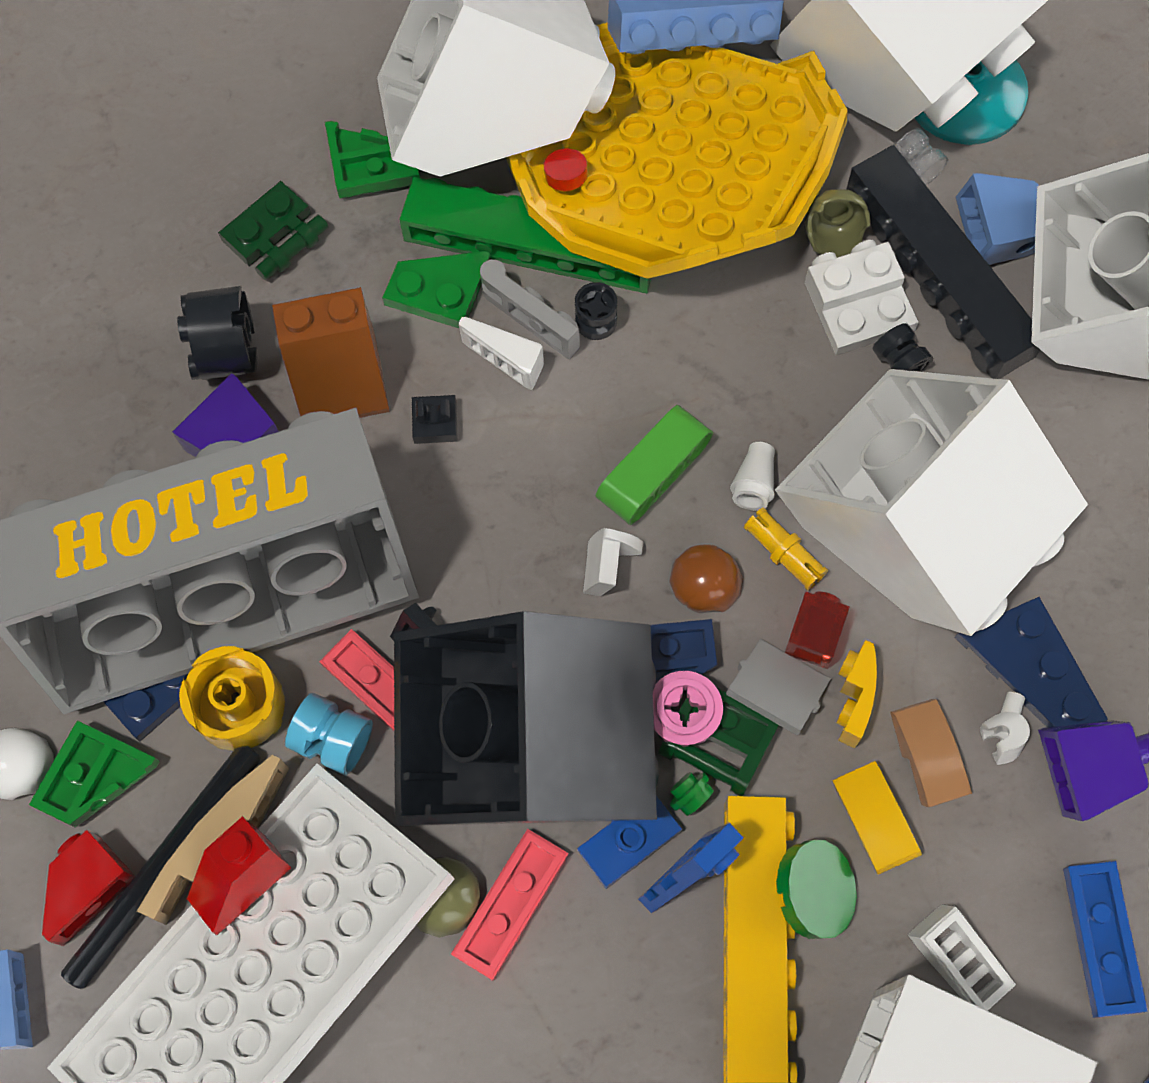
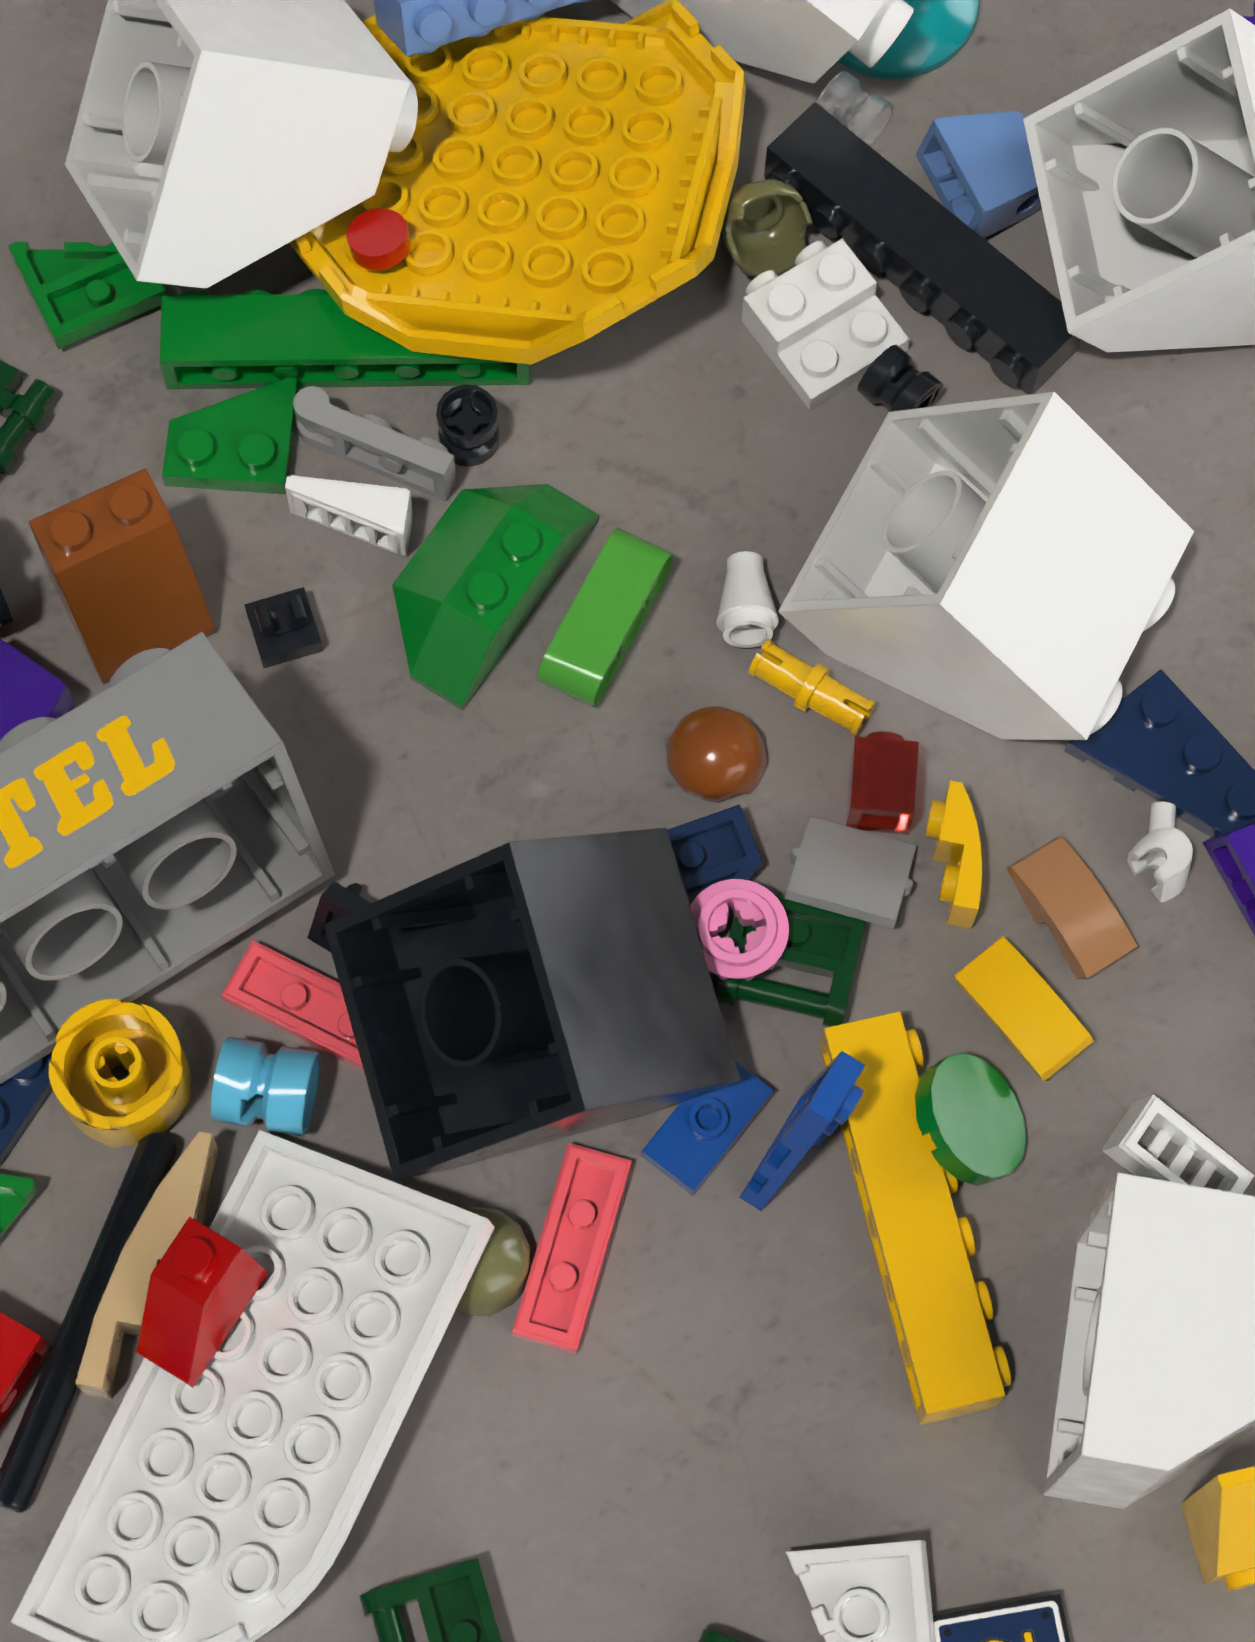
camera: 20 degrees left, 0 degrees up
(577, 419) = (482, 581): none -> green wedge
(603, 557) = (571, 760): white tile -> none
(691, 793) = (772, 1040): green plate -> none

